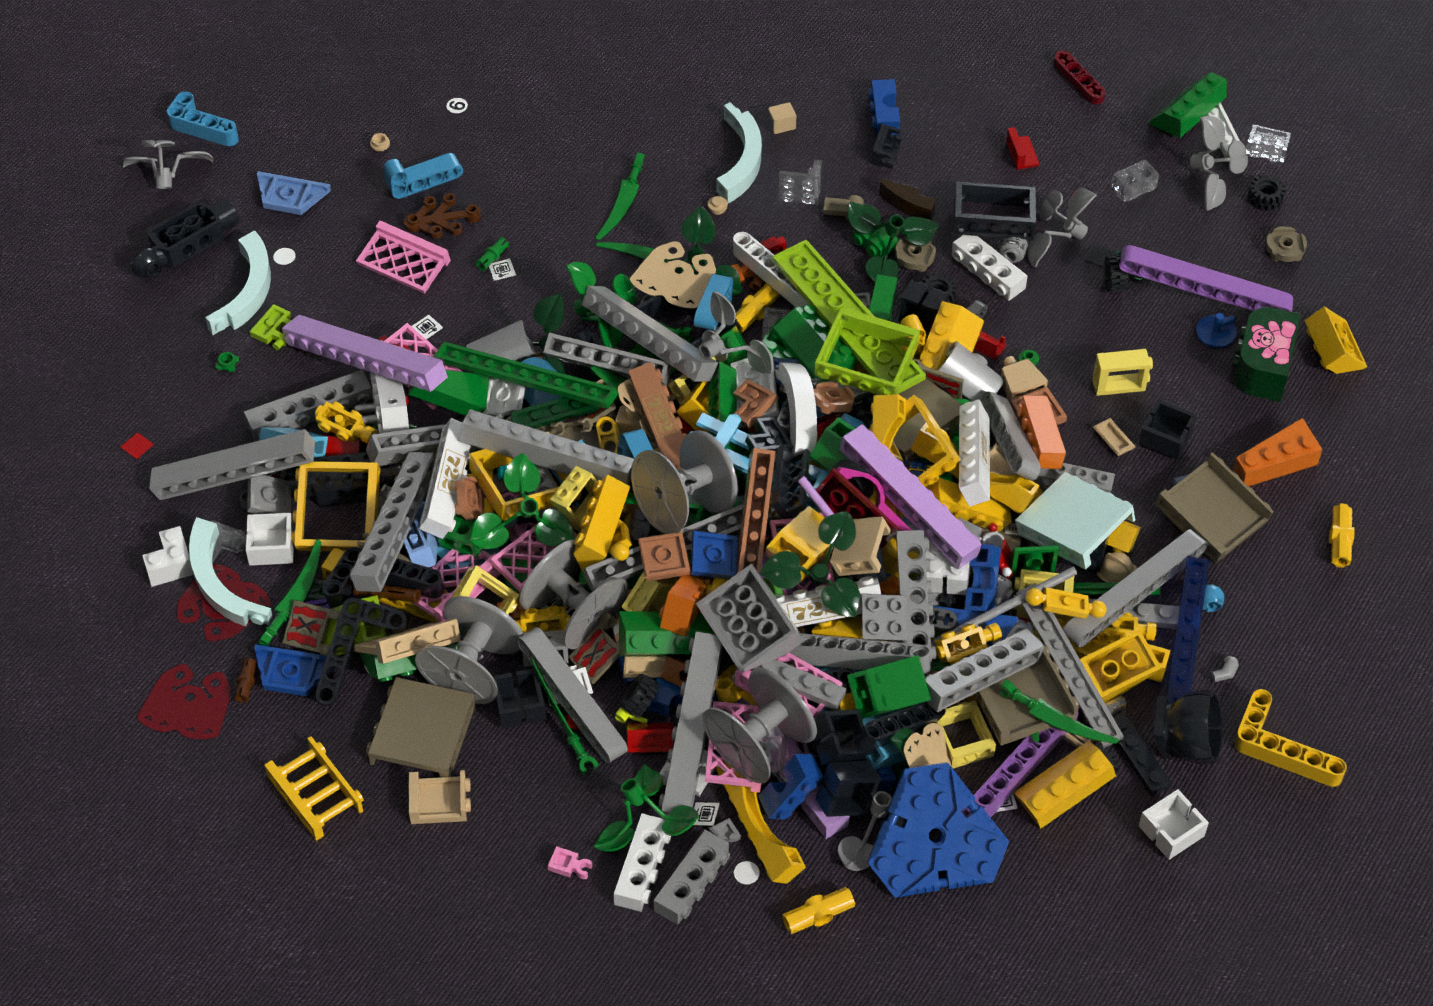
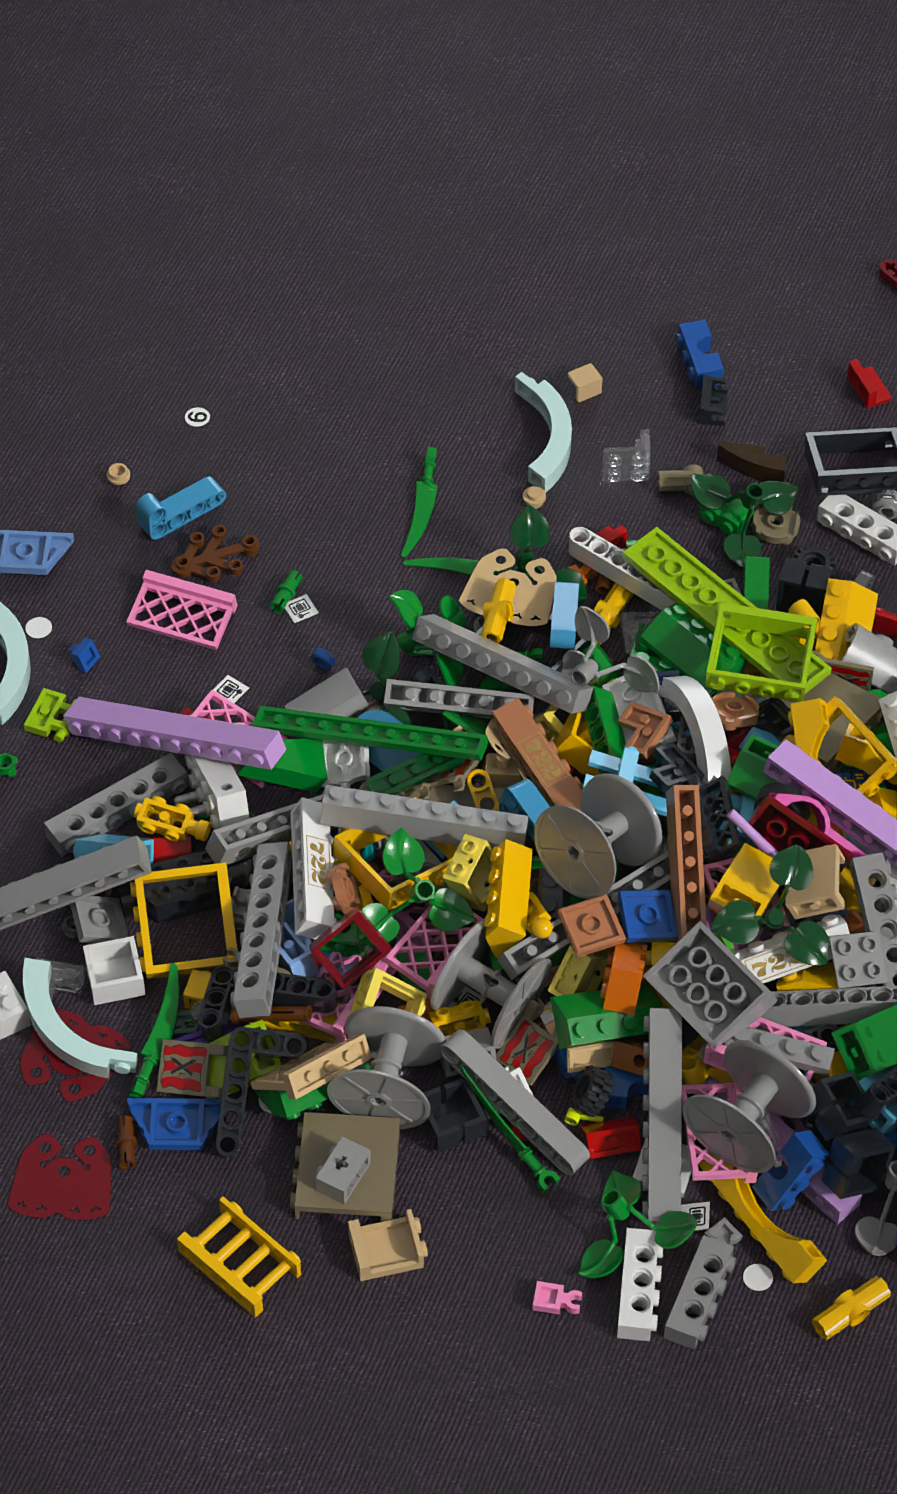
camera: 10 degrees left, 0 degrees up
(314, 282) = (84, 654): none -> blue tile
(413, 729) = (342, 1170): none -> light grey brick
(479, 535) = (334, 975): none -> dark red window
(508, 312) = (323, 659): none -> blue tile
(659, 290) = (498, 610): none -> yellow piece

